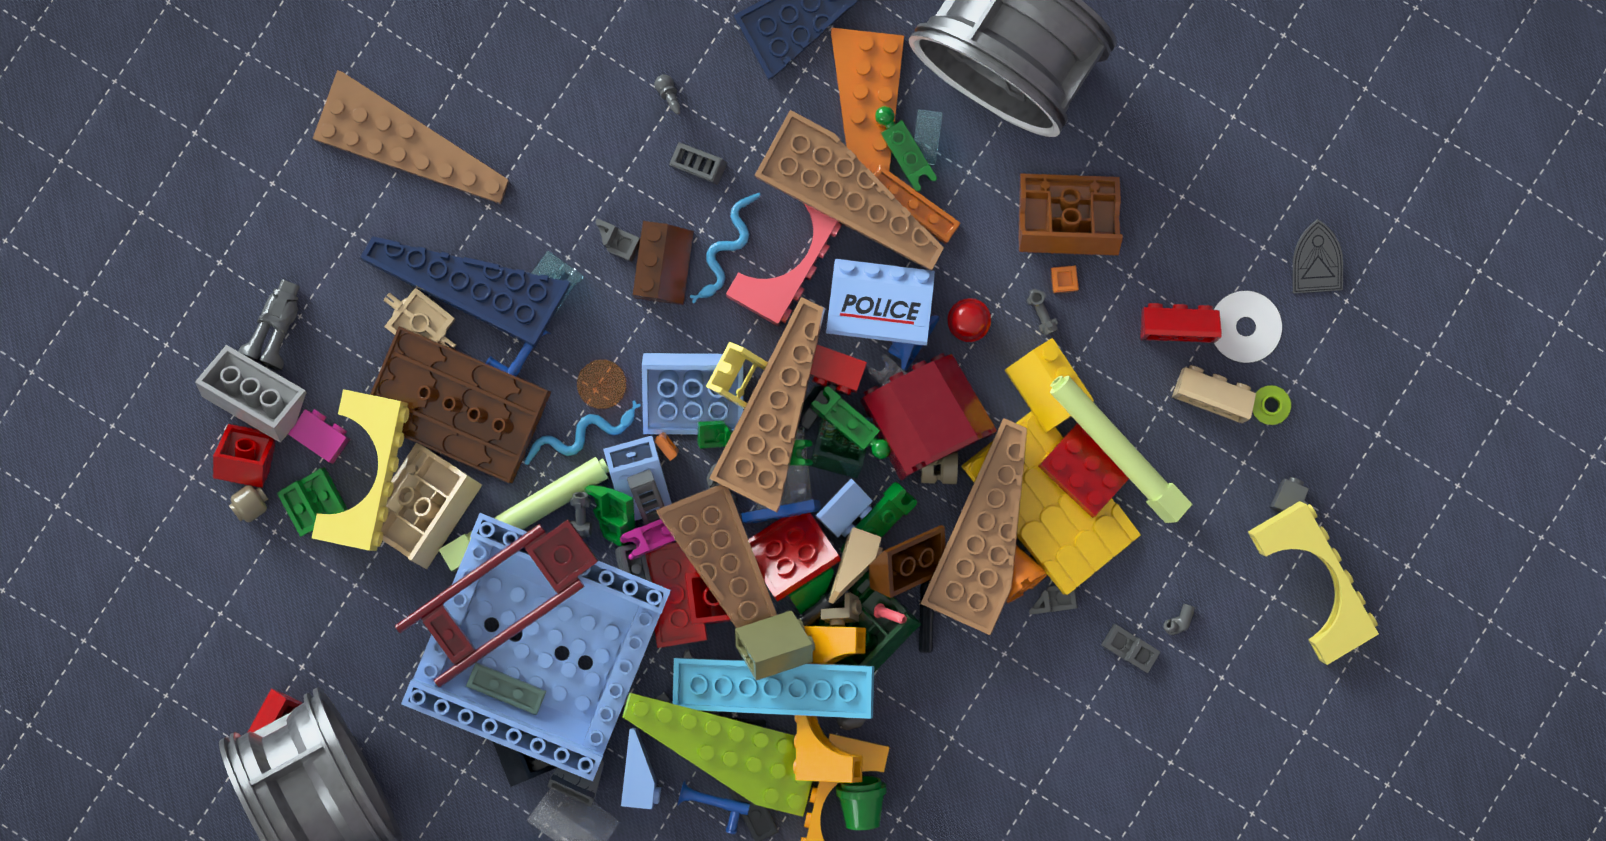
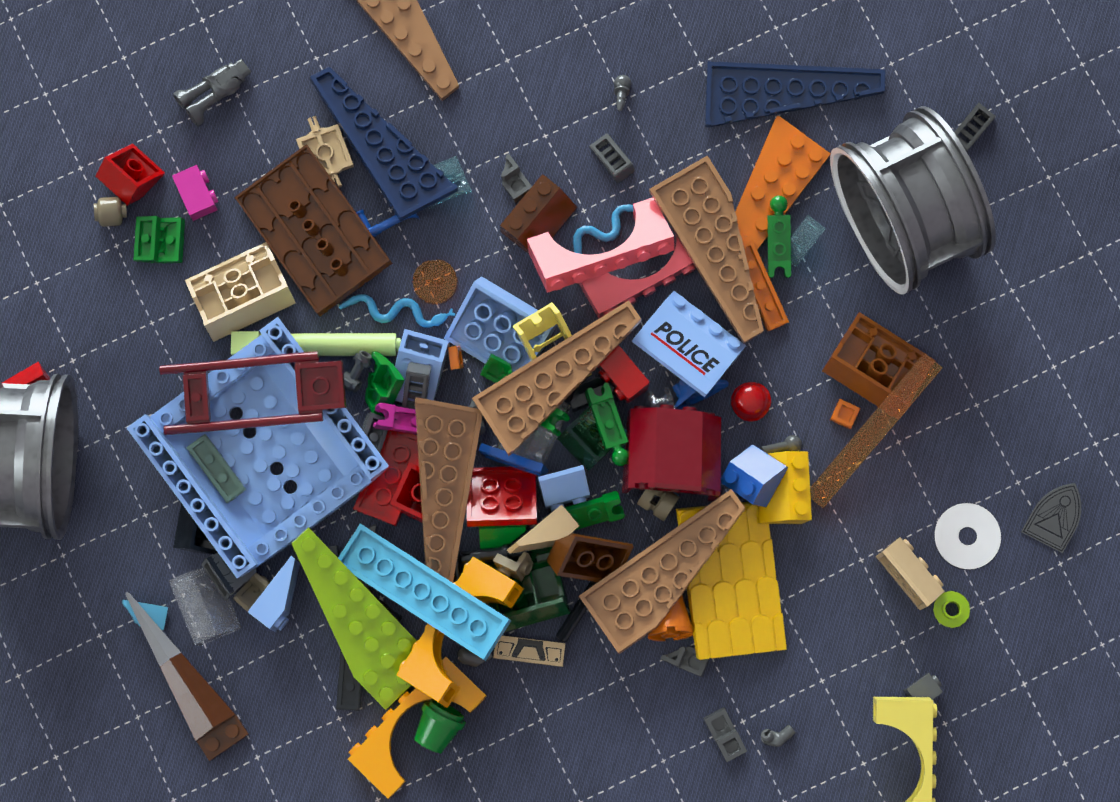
camera: 30 degrees right, 5 degrees down
(252, 393) = (164, 128): light grey slope -> none
(384, 423) = (187, 276): light yellow arch -> none
(611, 783) = (251, 591): none -> dark tan bracket
(718, 300) = (563, 268): none -> arch
(735, 807) = (336, 669): blue piece -> none
(774, 645) = (443, 557): olive brick -> none
(881, 611) = (543, 583): coral piece -> none
(905, 679) = (530, 651): none -> tan tile
(1016, 391) = (754, 475): none -> blue slope
(1031, 338) = (791, 443): none -> dark grey bar
(1036, 300) = (812, 416): dark grey bar -> none
(1083, 471) = (778, 569): red plate -> none
(1102, 280) = (874, 429): none -> clear orange plate
(1162, 496) = (821, 629): yellowish green brick -> none
(1180, 323) = (916, 502): red slope -> none

